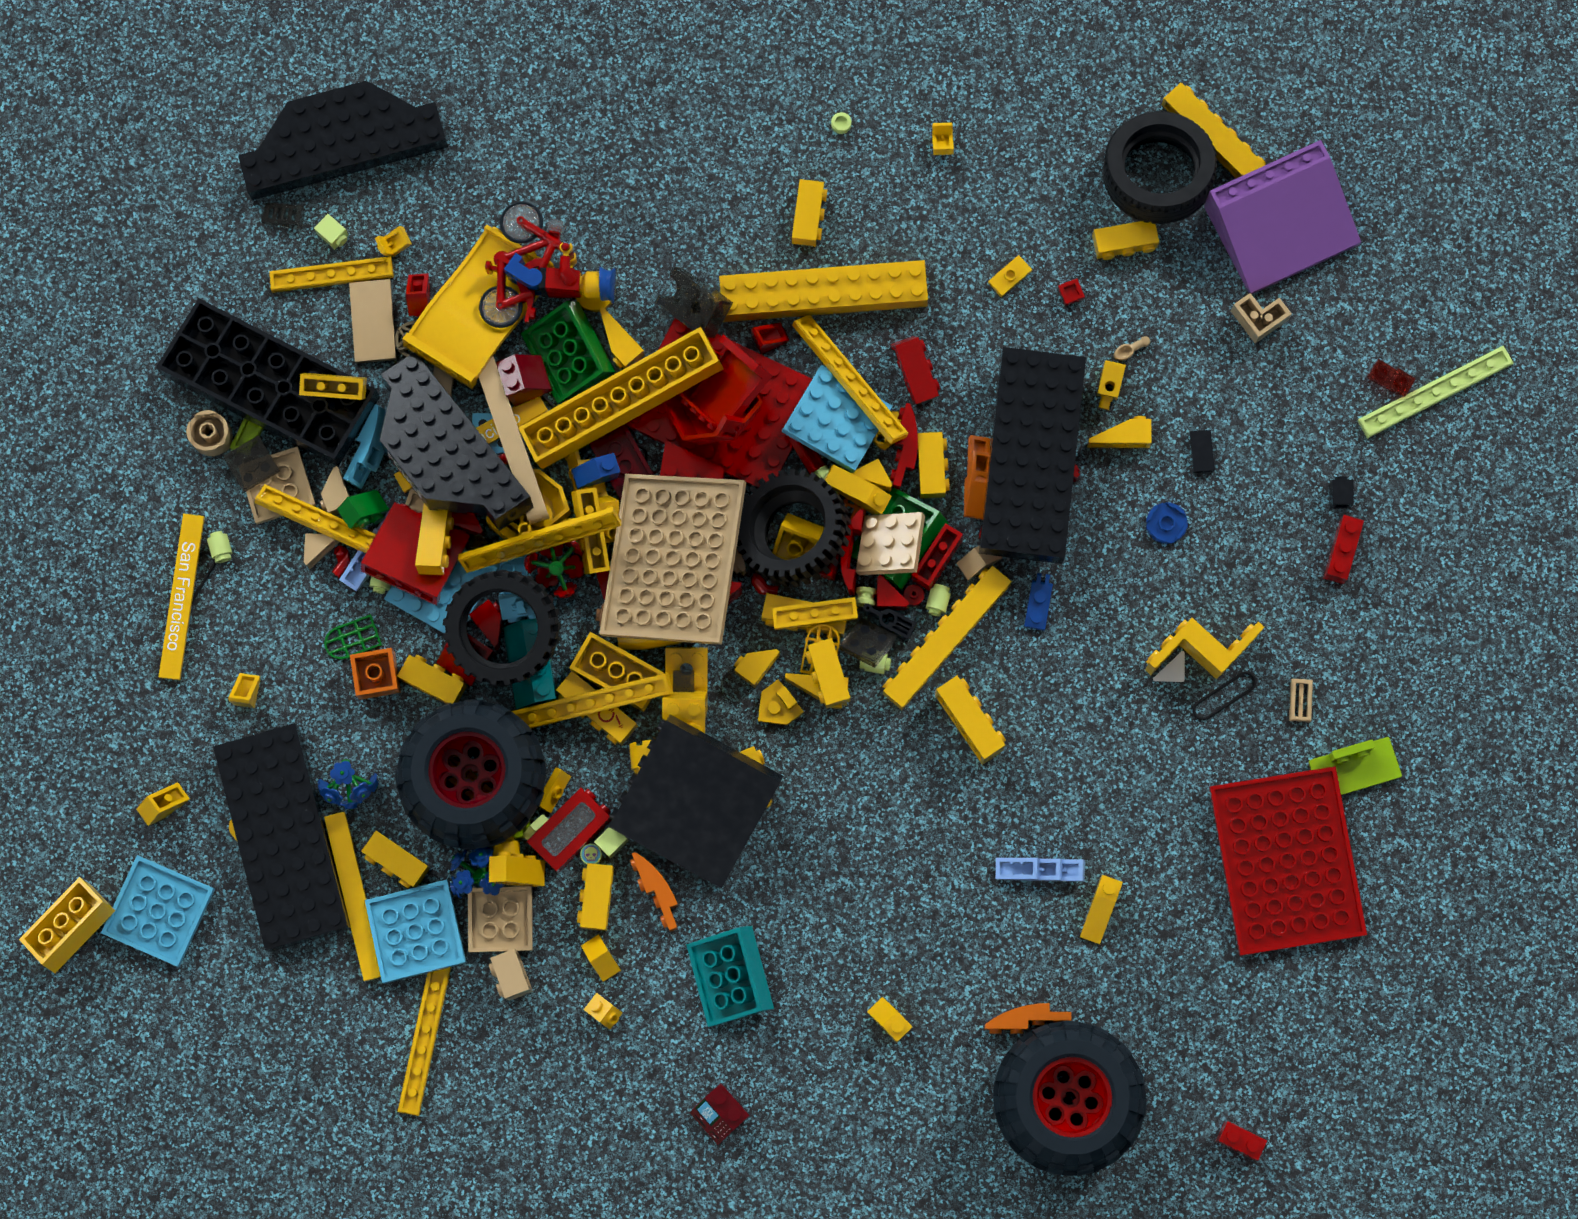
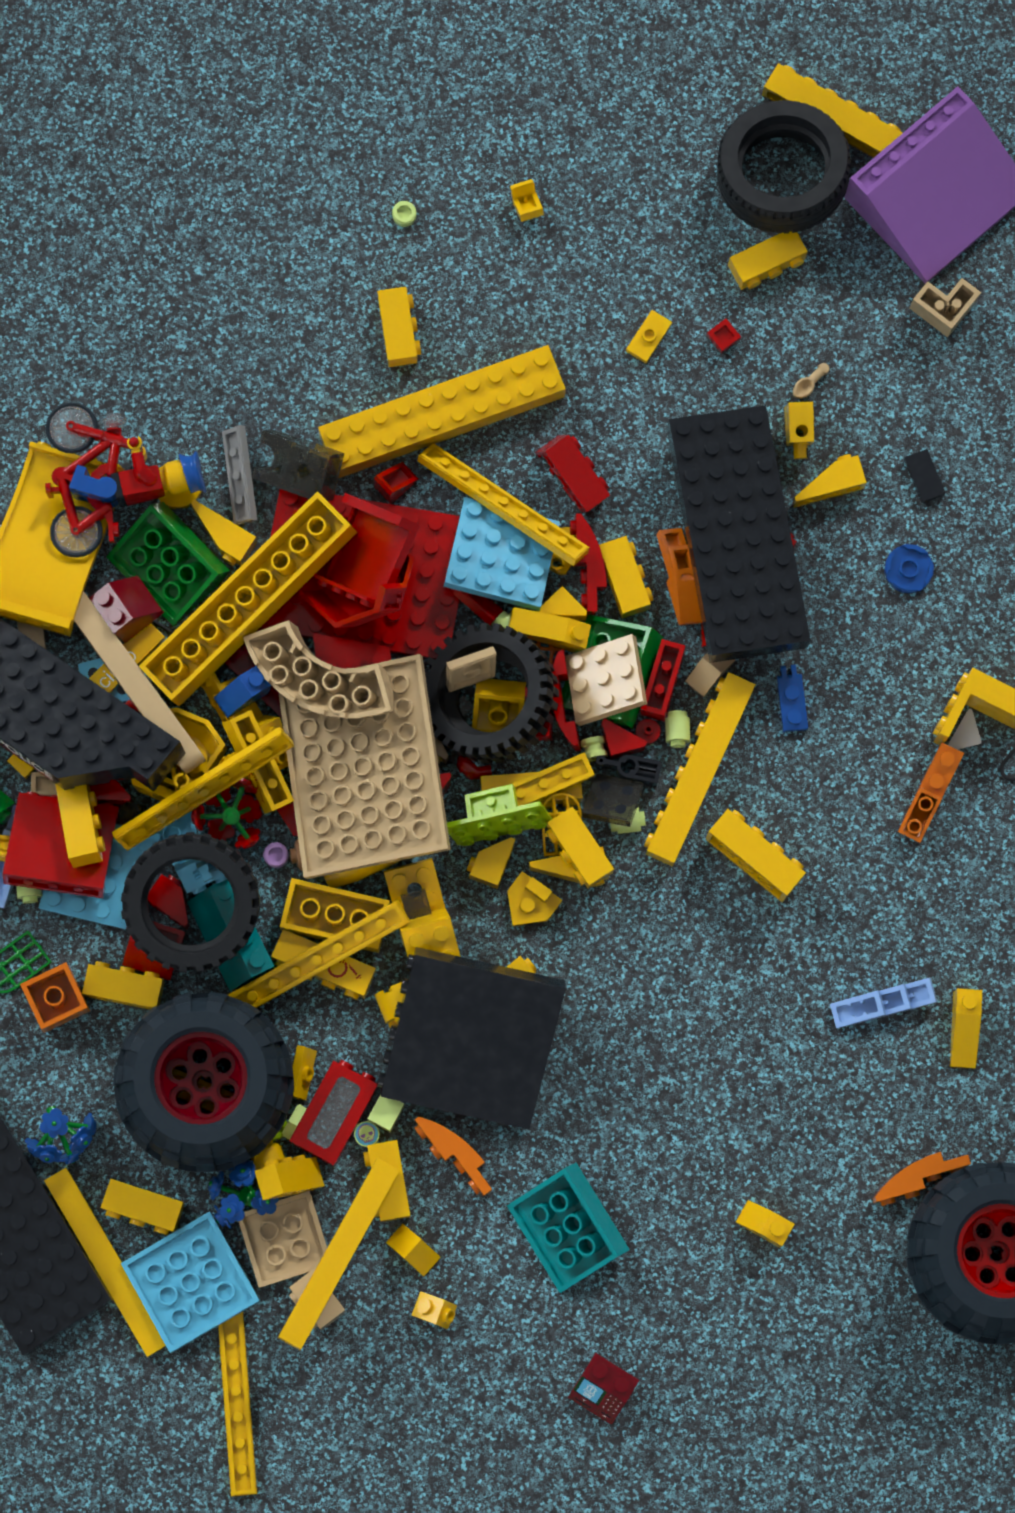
camera: 25 degrees left, 0 degrees up
(537, 943) = (338, 1254): none -> yellow tile
(585, 610) = (276, 855): none -> lavender tile
(645, 298) = (239, 475): none -> light grey tile
(652, 481) = (315, 684): none -> tan brick
(768, 627) = (496, 814): none -> lime bracket
(782, 504) = (470, 669): none -> tan tile
(1129, 709) = (930, 792): none -> orange slope

